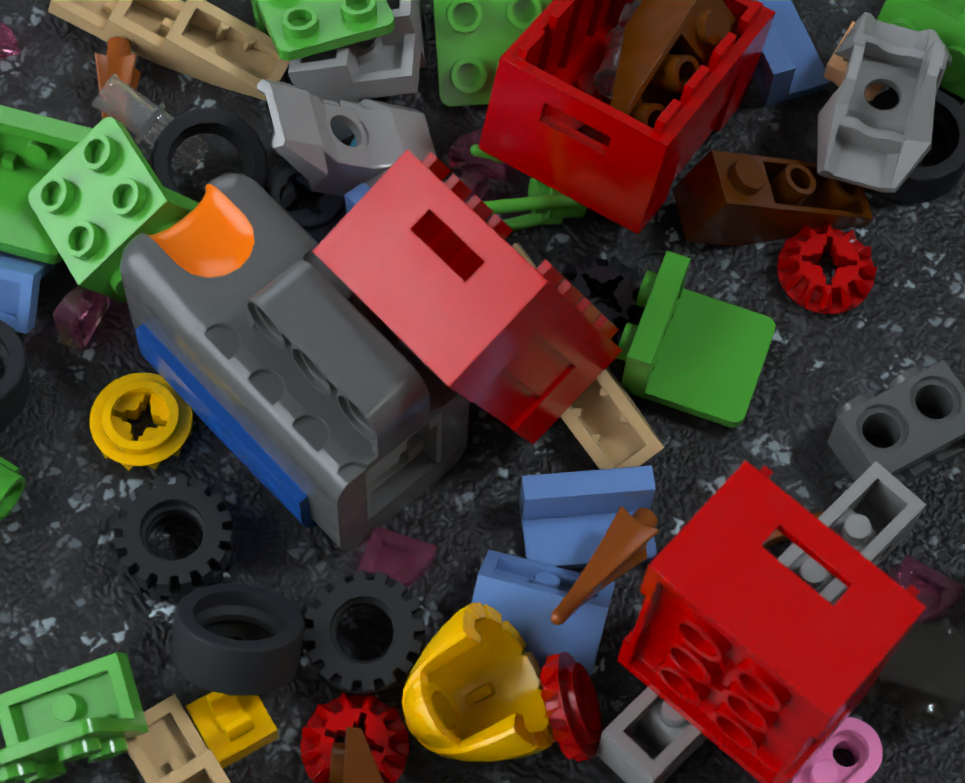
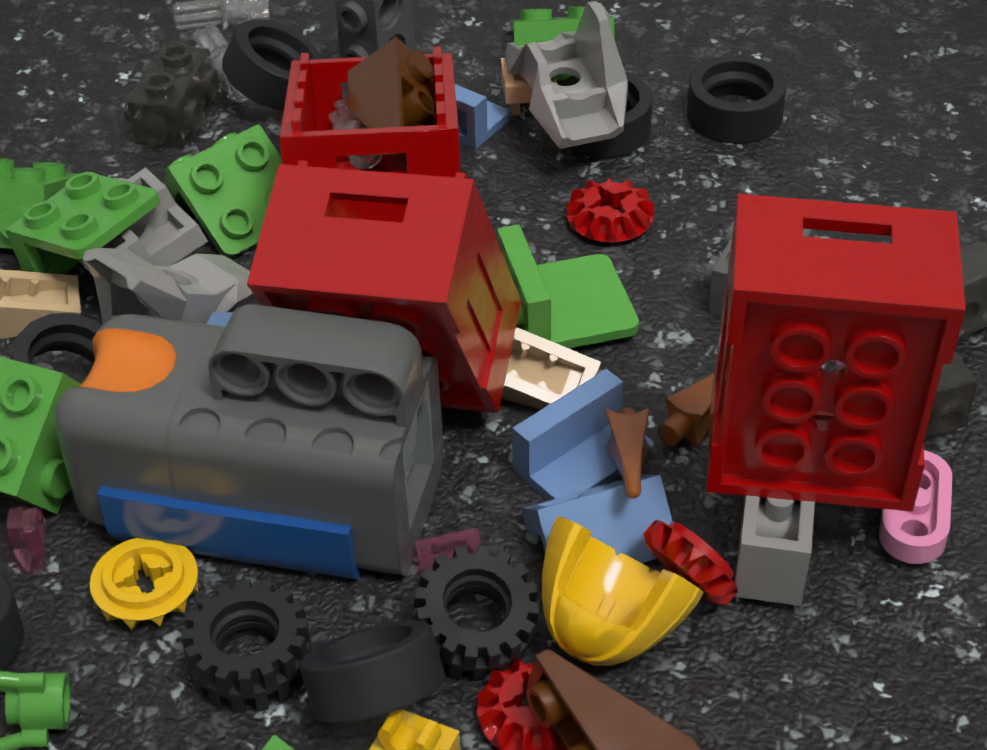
camera: 30 degrees left, 20 degrees down
(762, 199) = (535, 184): reddish brown slope -> none

